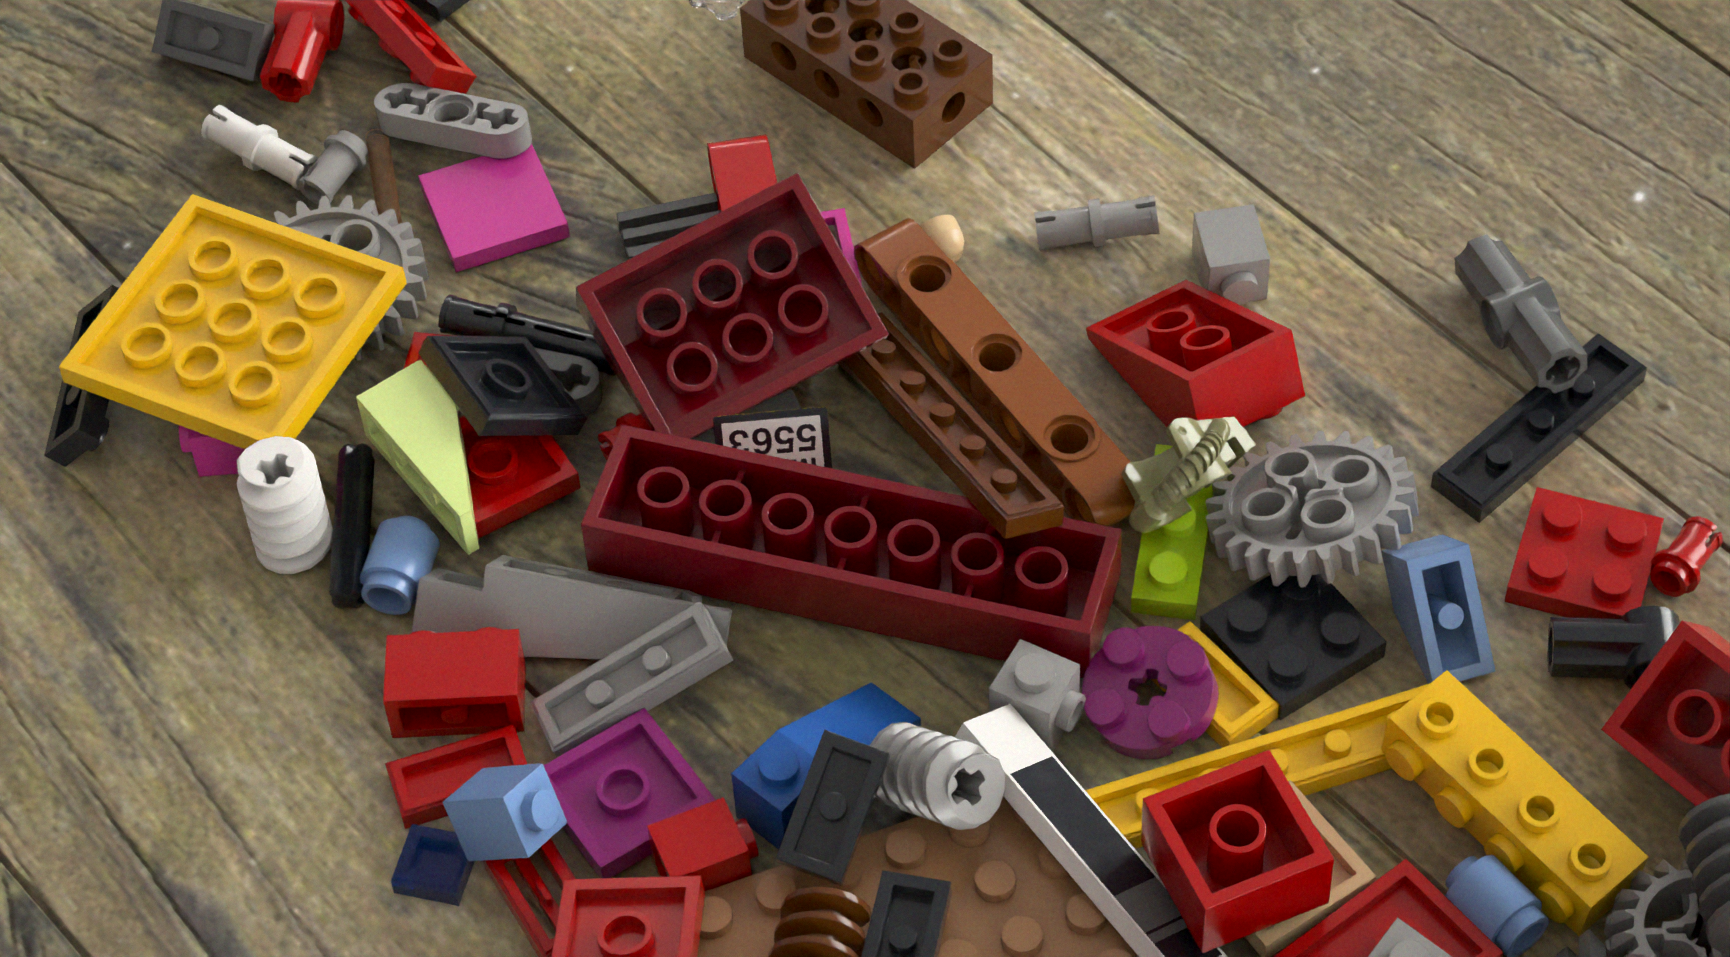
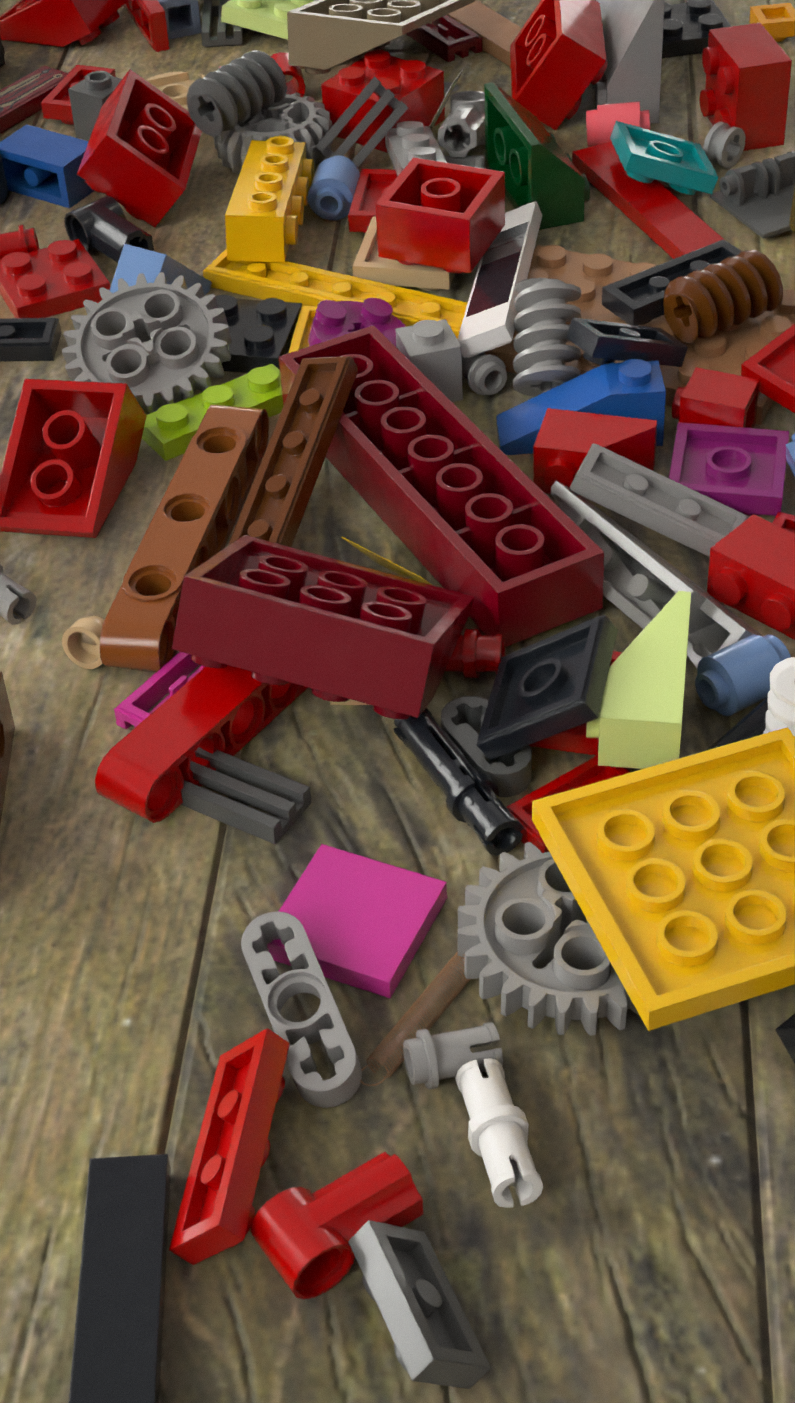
camera: 135 degrees left, 10 degrees down
(762, 694) = (568, 436): none -> red slope
(1199, 457) = (169, 375): olive piece -> none

